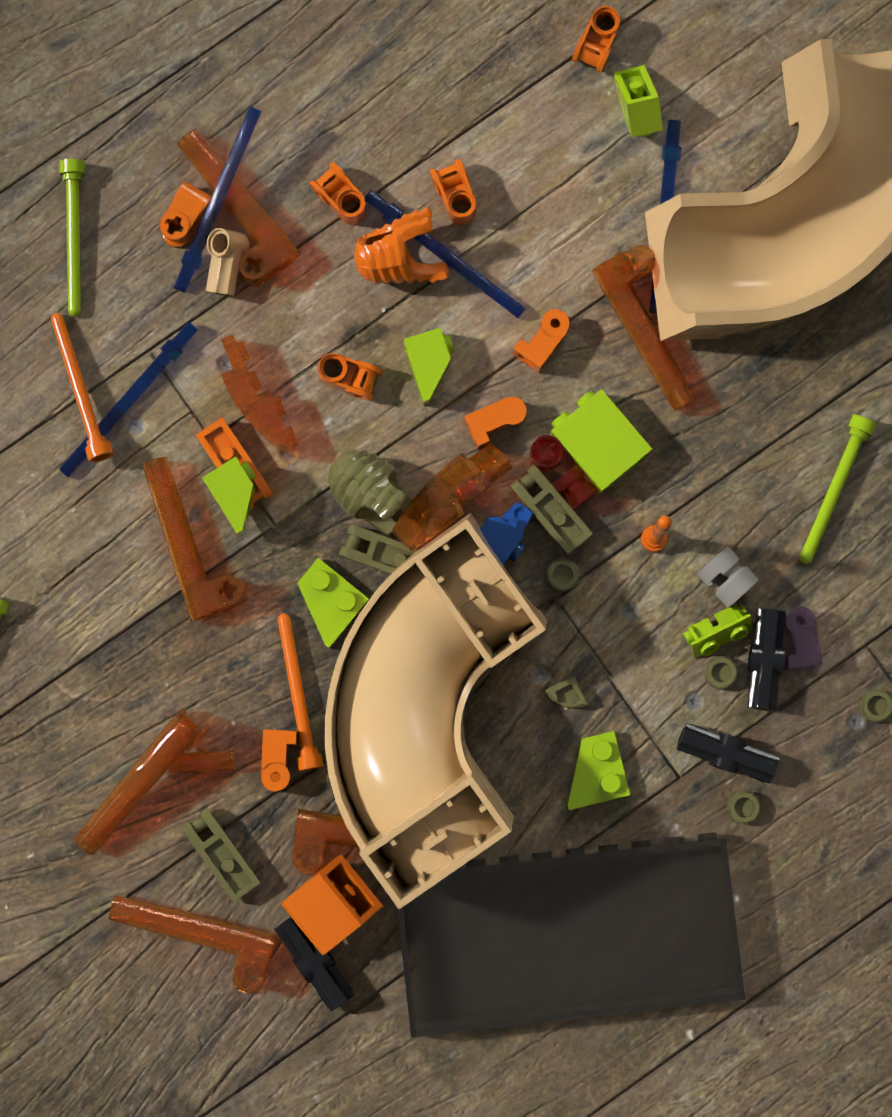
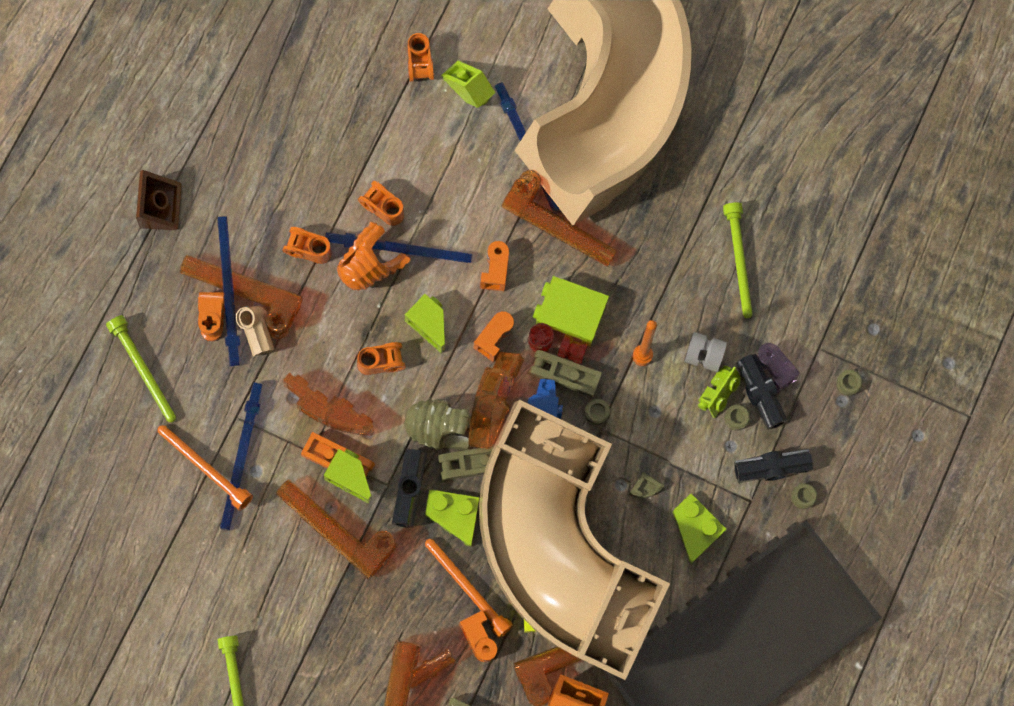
camera: 35 degrees left, 10 degrees down
(197, 47) = (158, 202): none -> reddish brown slope
(310, 527) = (407, 504): none -> black piece

